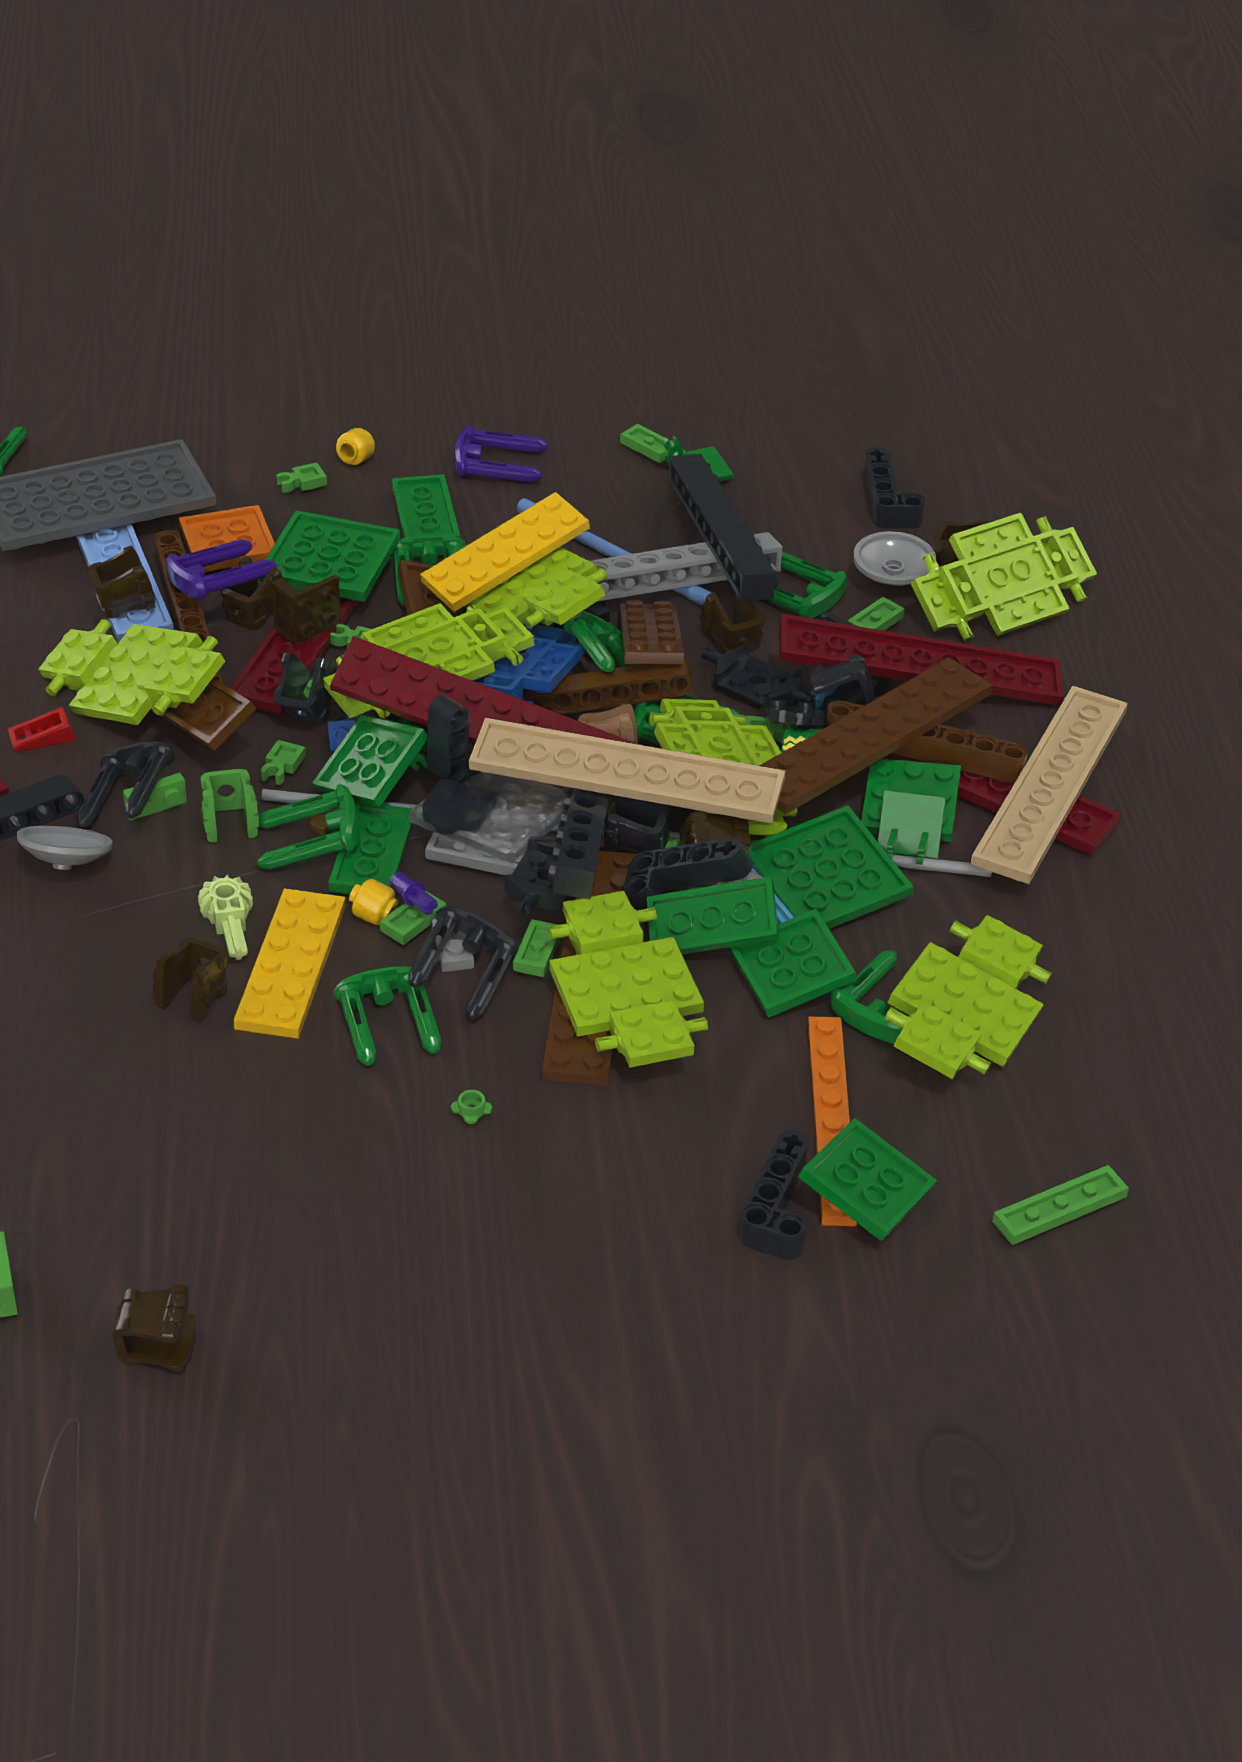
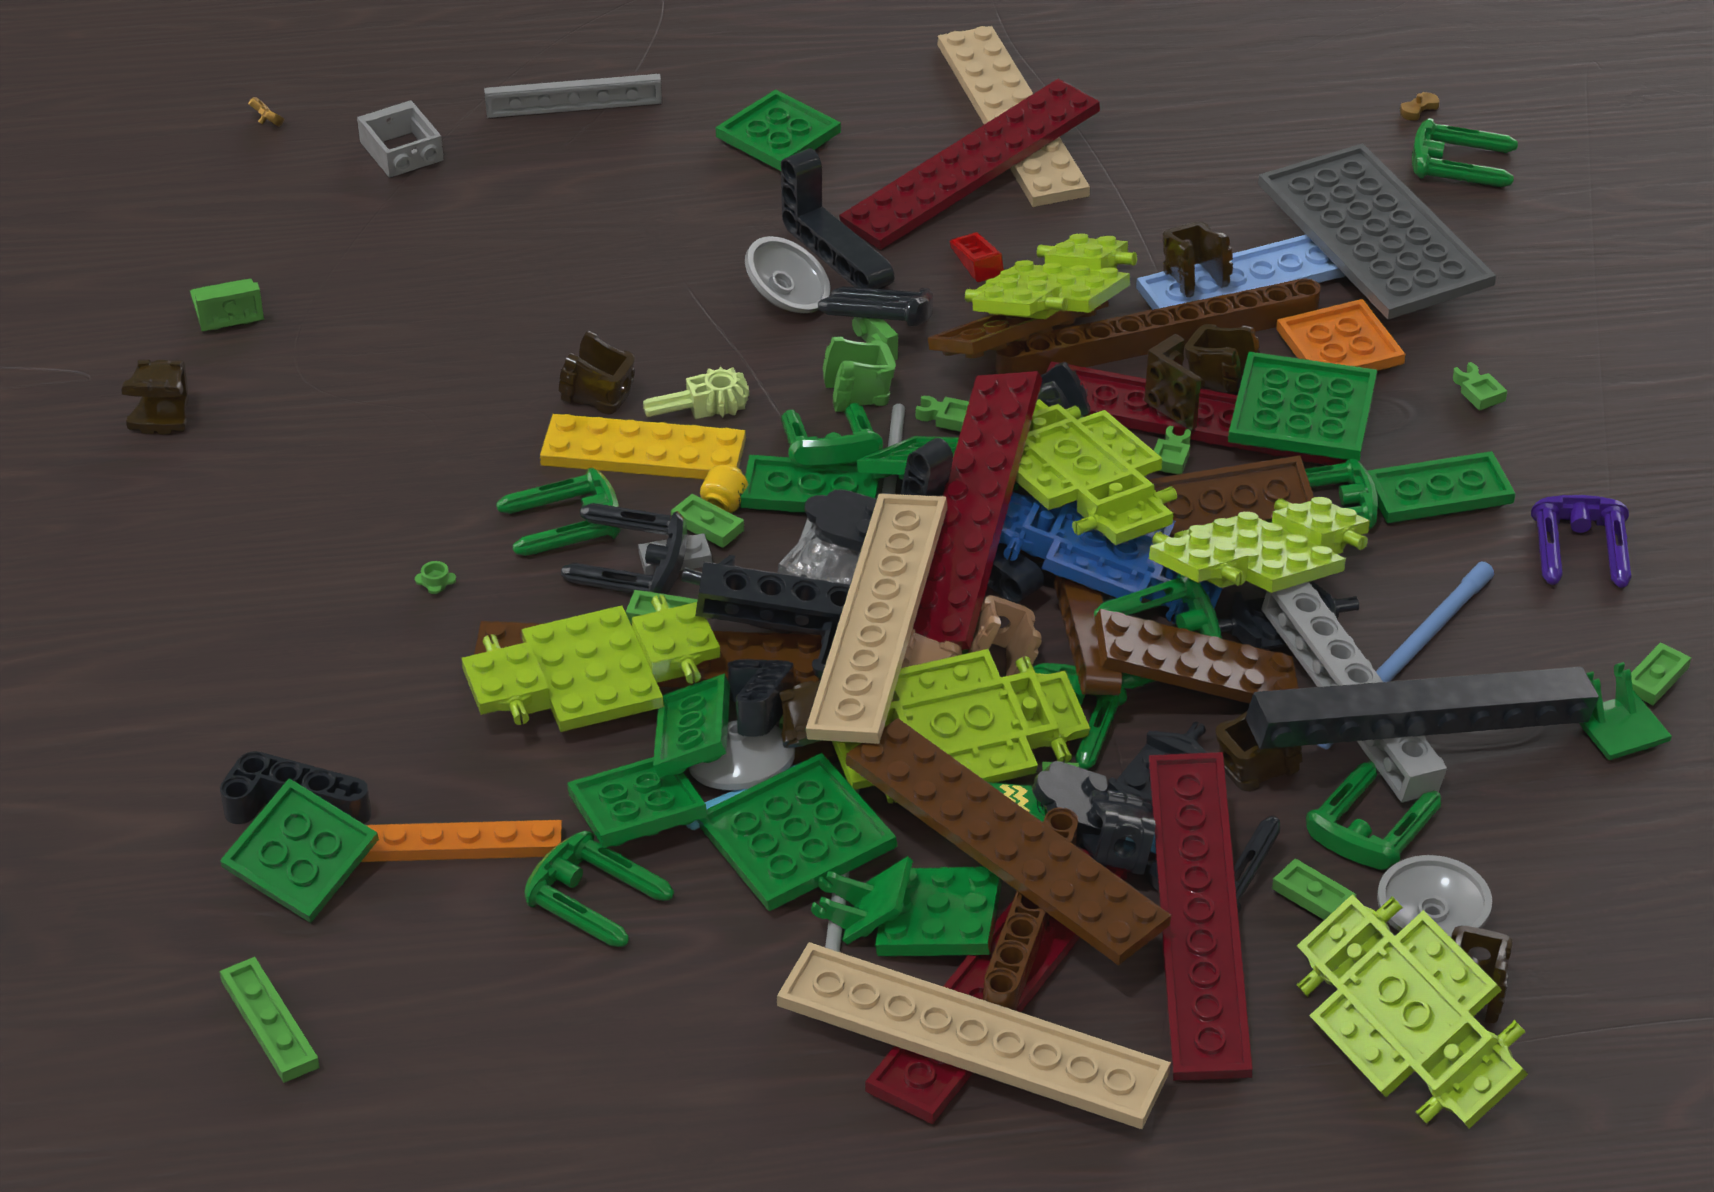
camera: 90 degrees right, 0 degrees up
(189, 576) = (1218, 294): dark purple piece -> none
(355, 446) = (1554, 419): yellow head -> none
(413, 893) = (724, 506): dark purple axle -> none
(504, 551) = (1302, 517): yellow plate -> none
(887, 505) = (1614, 901): black beam -> none
(968, 999) = (571, 941): lime piece -> none

